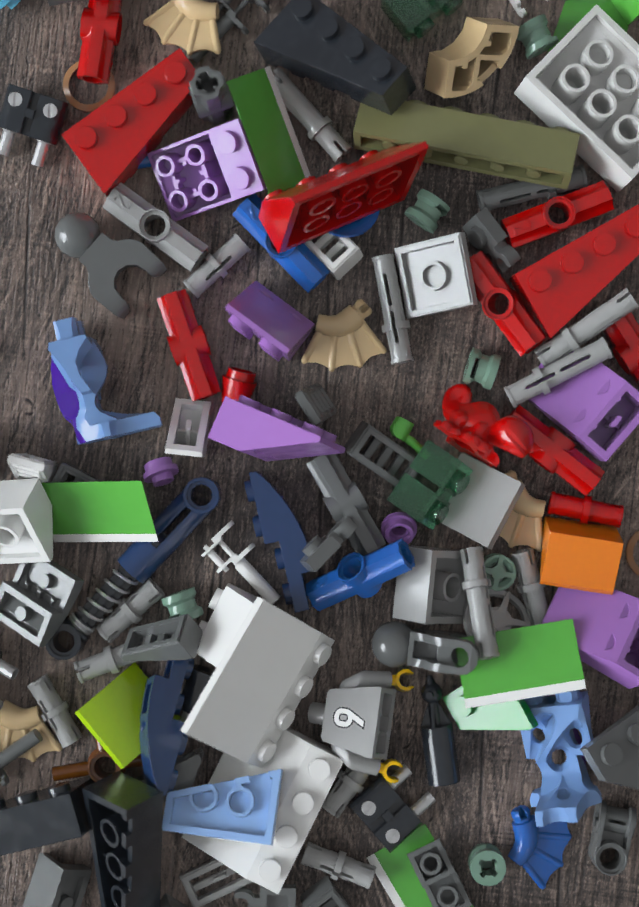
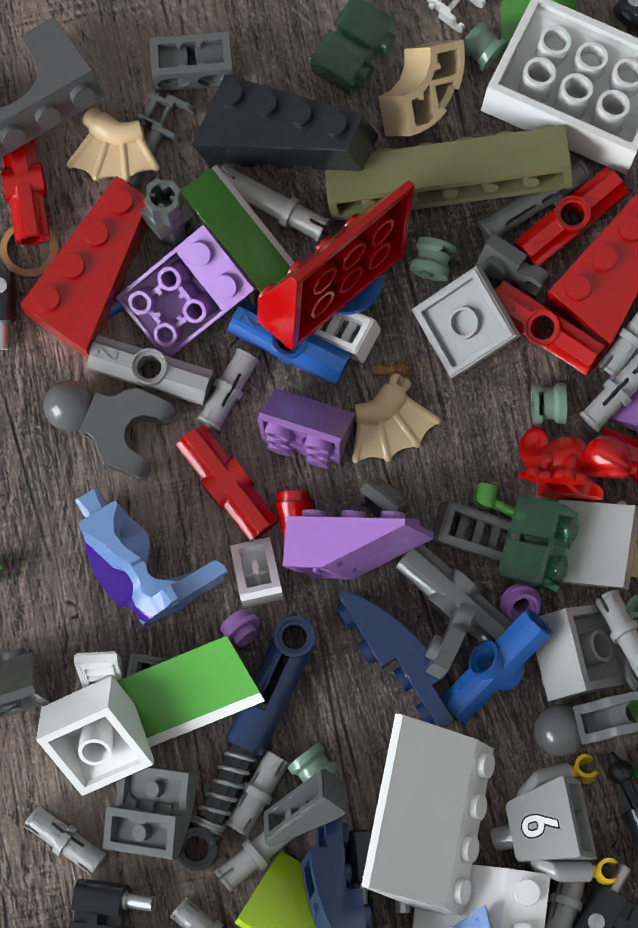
camera: 15 degrees left, 10 degrees down
(229, 612) = (367, 758): white slope -> none
(249, 573) = (362, 701): white piece -> none
(358, 293) = (391, 369): none -> clear orange piece
(399, 351) = (454, 414): light grey pin -> none

